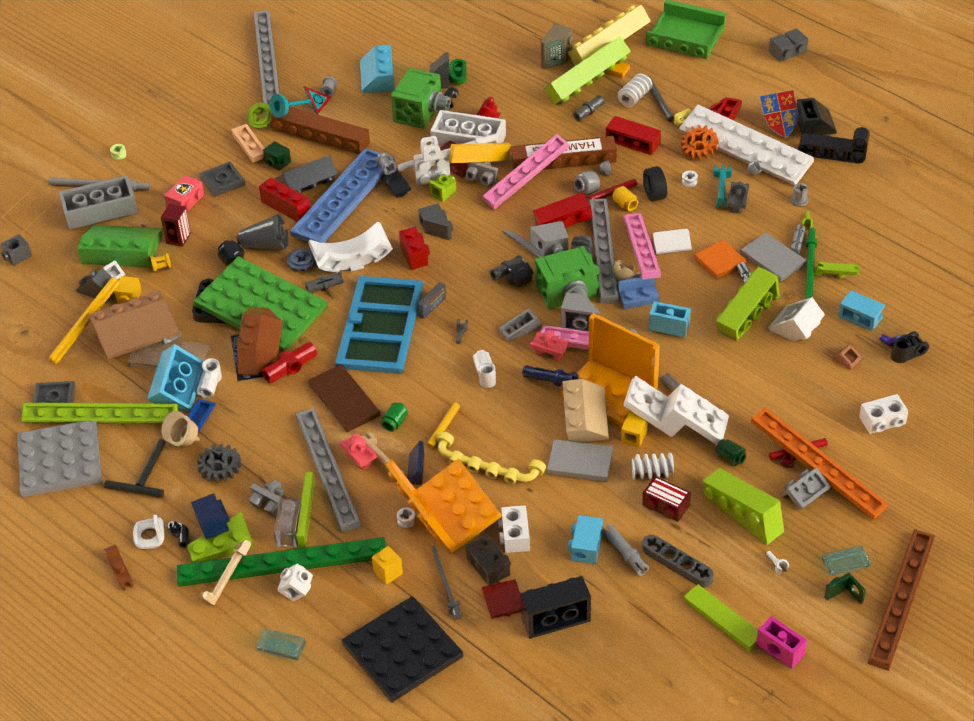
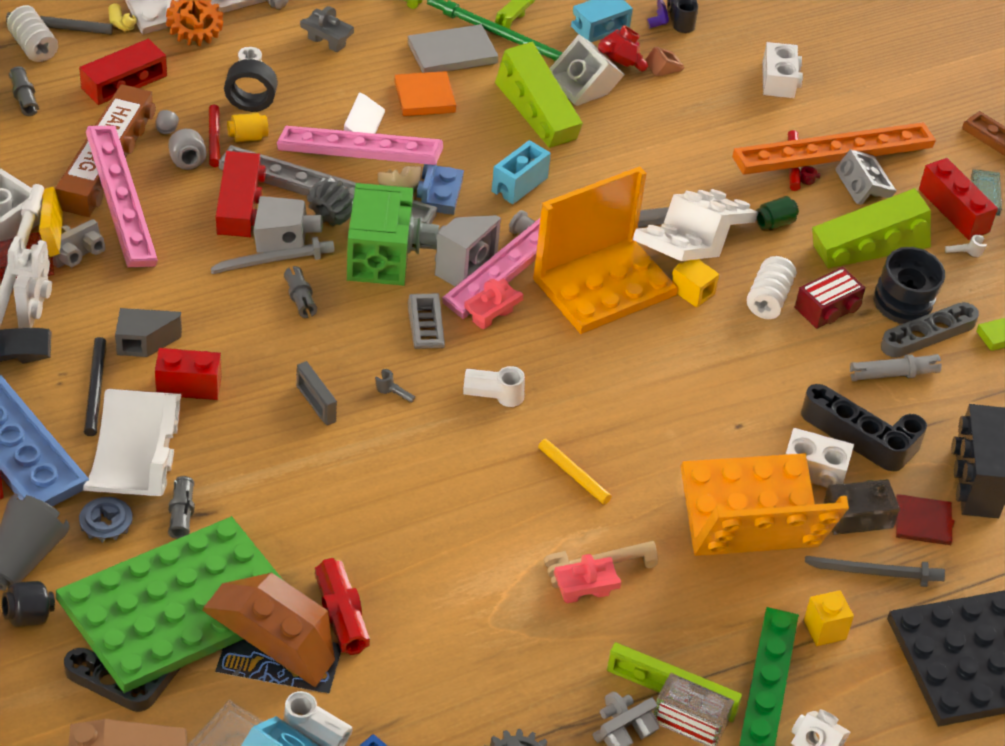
camera: 75 degrees left, 0 degrees up
(328, 470) = (590, 633): light grey tile -> none
(344, 398) = (453, 566): reddish brown tile -> none
(380, 324) = (318, 474): door -> none
(391, 221) = (95, 386): none -> black bar
(394, 416) = (534, 516): green brick -> none
(406, 523) = (727, 574): white bush -> none
(416, 464) = (640, 523): dark blue slope -> none
(442, 187) = (70, 289): lime brick -> none
(492, 469) = (672, 459): light yellow bar -> none
(519, 273) = (326, 281): black head -> none
(550, 561) = (872, 437): none -> black beam
(555, 377) = (567, 313): dark blue pin -> none
(580, 460) = (715, 355): light grey tile -> none
(585, 411) = (644, 315): tan slope -> none
(586, 539) = (869, 391): medium azure brick -> none
(698, 530) = (908, 284): none -> black wheel
(722, 174) = (263, 25): teal hinge -> none
(744, 271) = (478, 83): piece -> none
(798, 239) = (435, 16): light grey axle -> none
(817, 541) = (958, 198): none -> red brick
(831, 327) = (623, 48): none -> red rock

